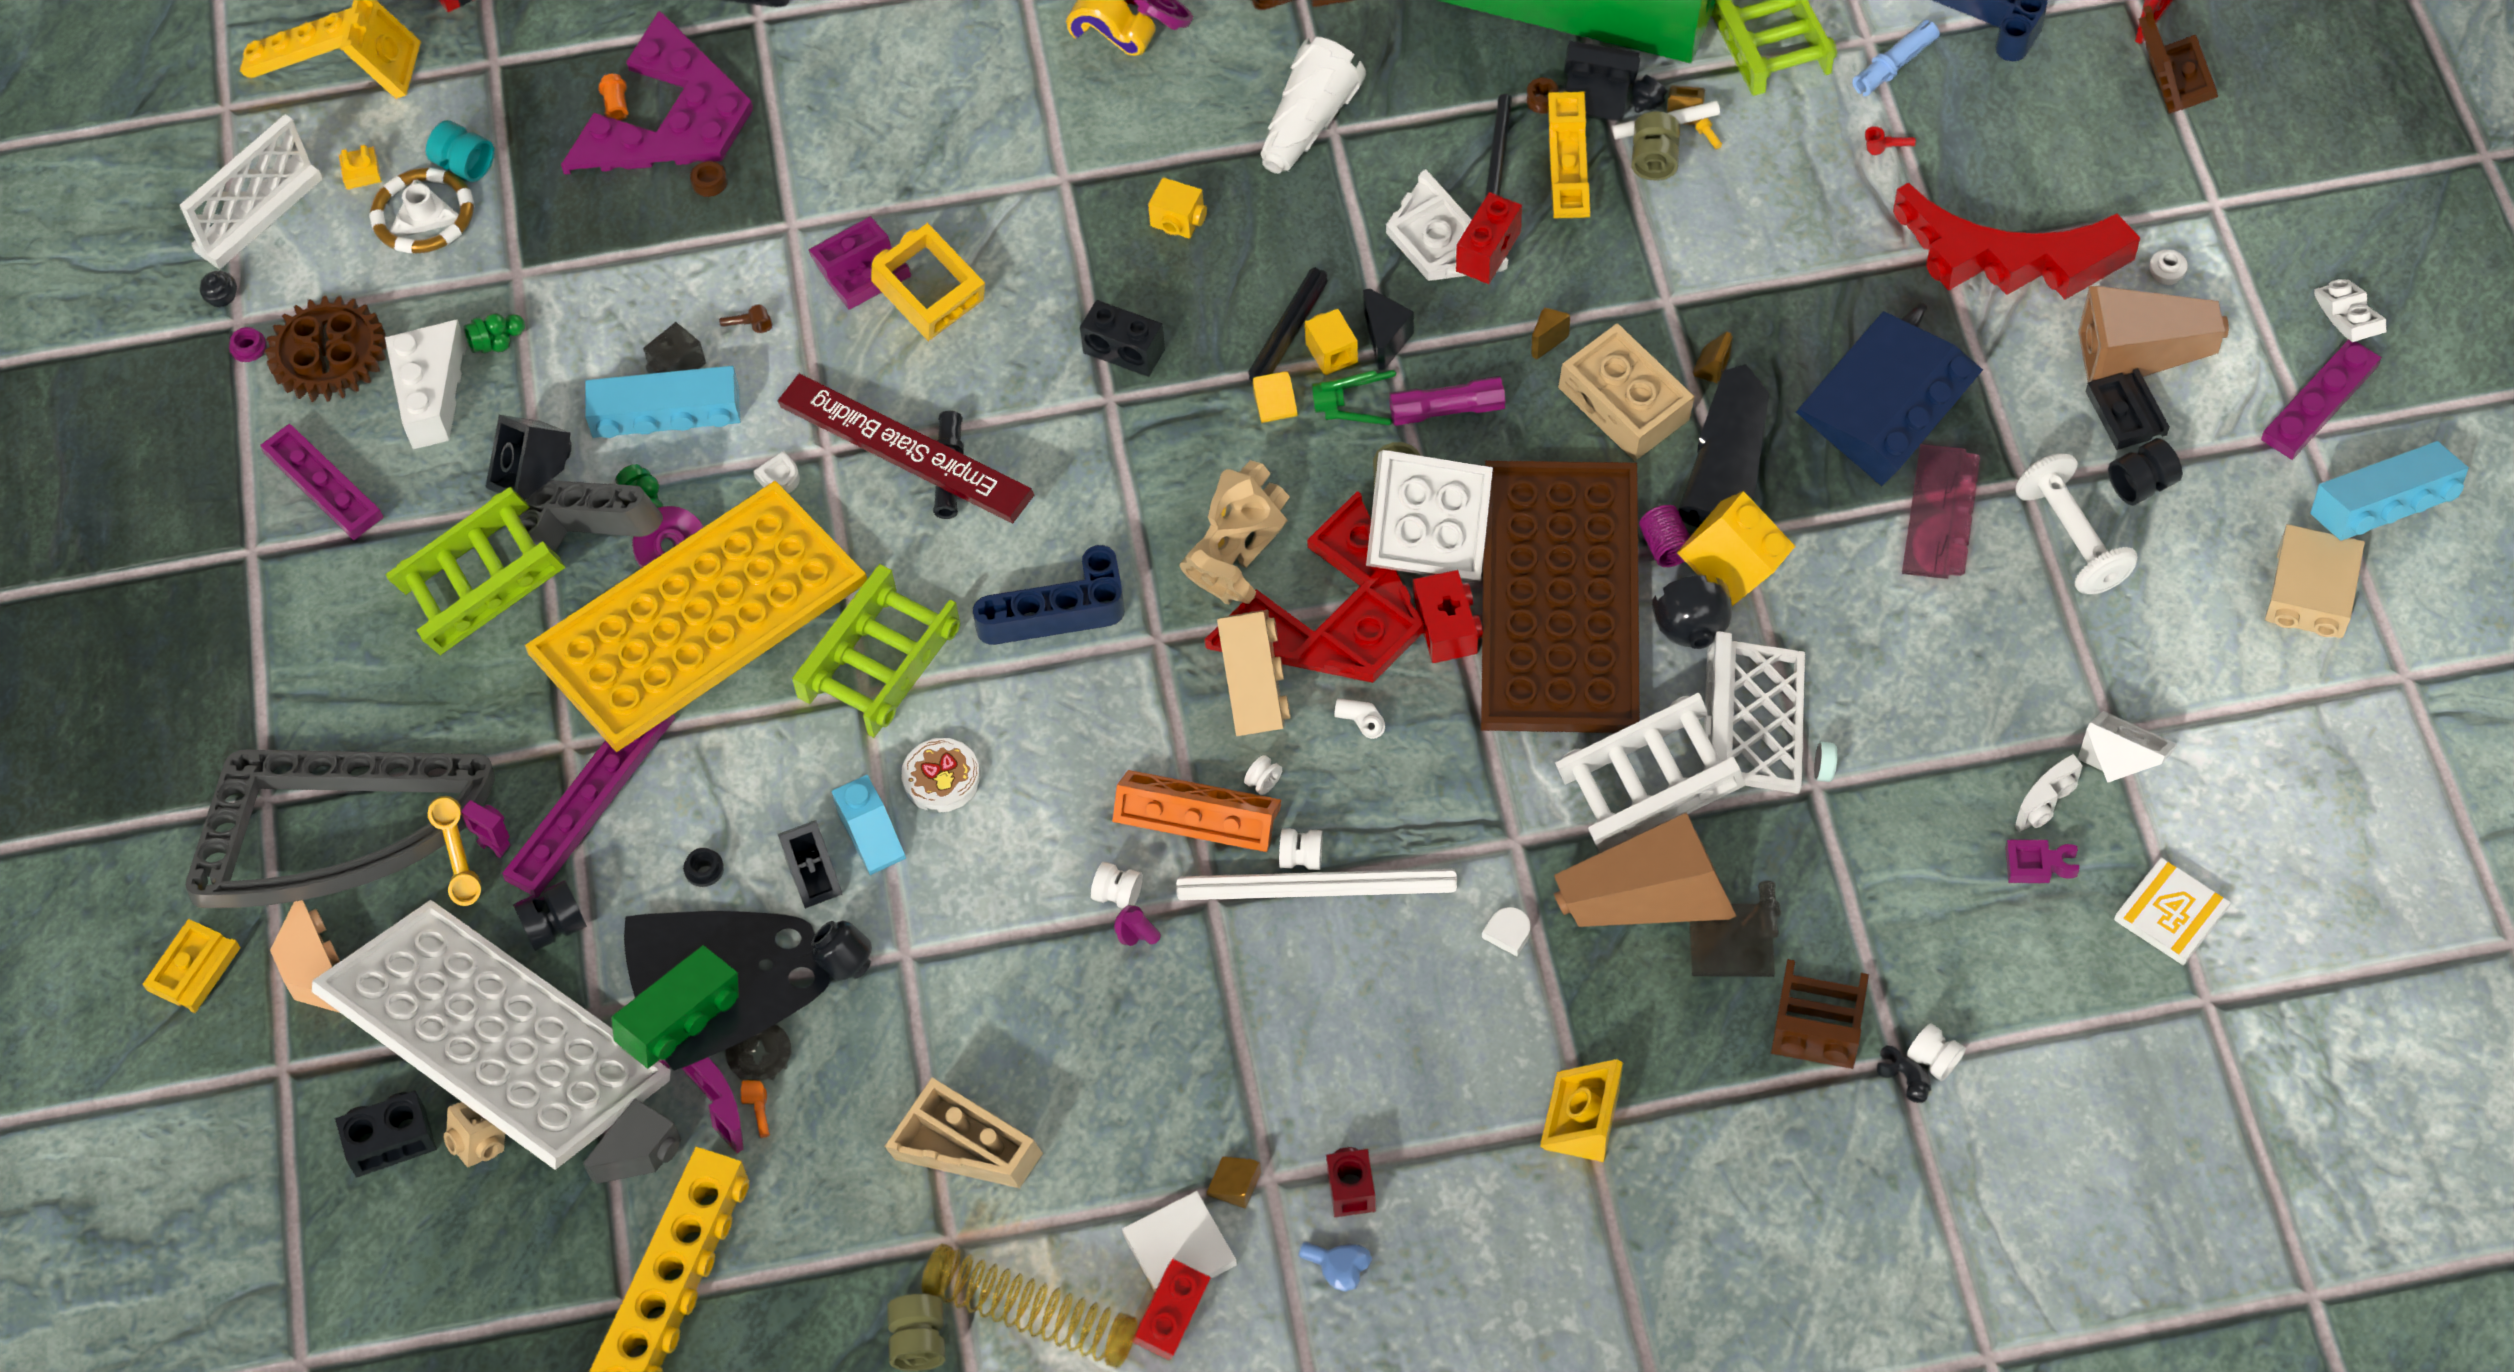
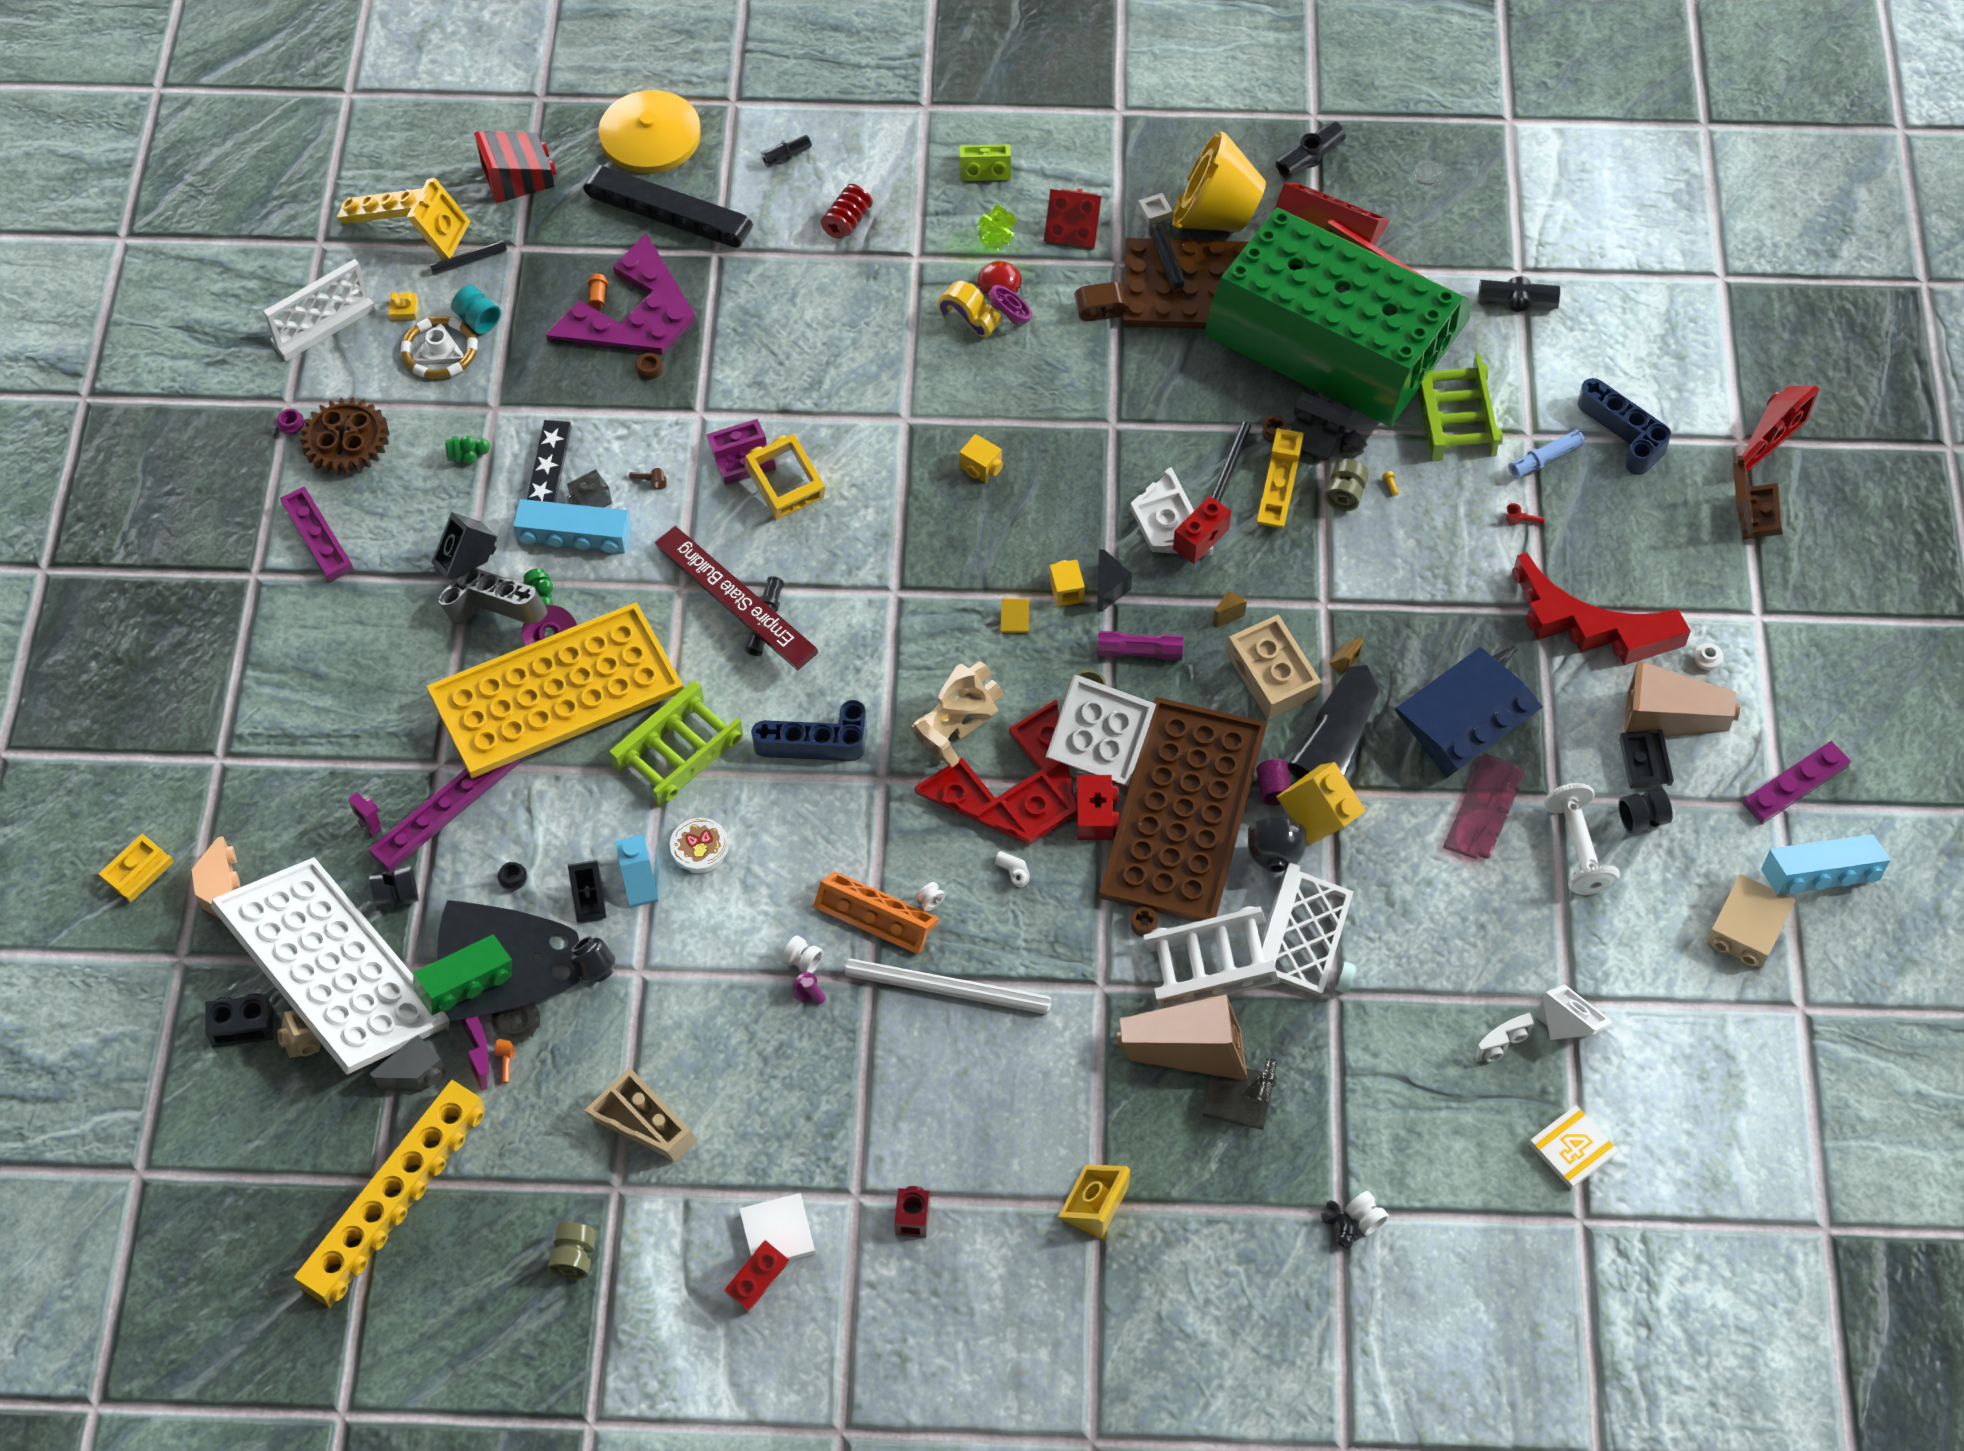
camera: 10 degrees right, 0 degrees up
(218, 288) = (280, 375): black plate -> none
(253, 770) = (214, 735): dark grey beam -> none
(426, 379) = (408, 472): white wedge -> none
(429, 88) = (467, 257): none -> black bar
(465, 884) = (342, 850): yellow bar -> none
(495, 594) = (415, 644): lime fence -> none
(609, 324) = (549, 461): none -> black tile
(779, 469) = (644, 596): white tile -> none
(1120, 1334) = (718, 1277): clear yellow piece -> none
(1122, 338) = (915, 548): black brick -> none
(1235, 1180) = (830, 1192): pearl gold slope -> none
(1253, 672) = (940, 818): tan wedge -> none
(1289, 323) = (1040, 563): black axle -> none
(1301, 849) = (942, 957): white wheel -> none
(1314, 93) = (1100, 397): white cone -> none
(1330, 396) = (1056, 623): green plant -> none
(1340, 1264) = (888, 1270): medium blue rock -> none
(1508, 930) = (1078, 1051): white tile -> none
(1537, 751) = (1143, 912): none -> reddish brown bush
(1683, 115) = (1378, 465): white bar -> none
(1684, 97) = (1379, 457): pearl gold slope -> none
(1815, 1039) = (1280, 1184): reddish brown plate -> none
(2033, 861) = (1479, 1087): magenta plate -> none
(2348, 310) = (1837, 720): white slope -> none

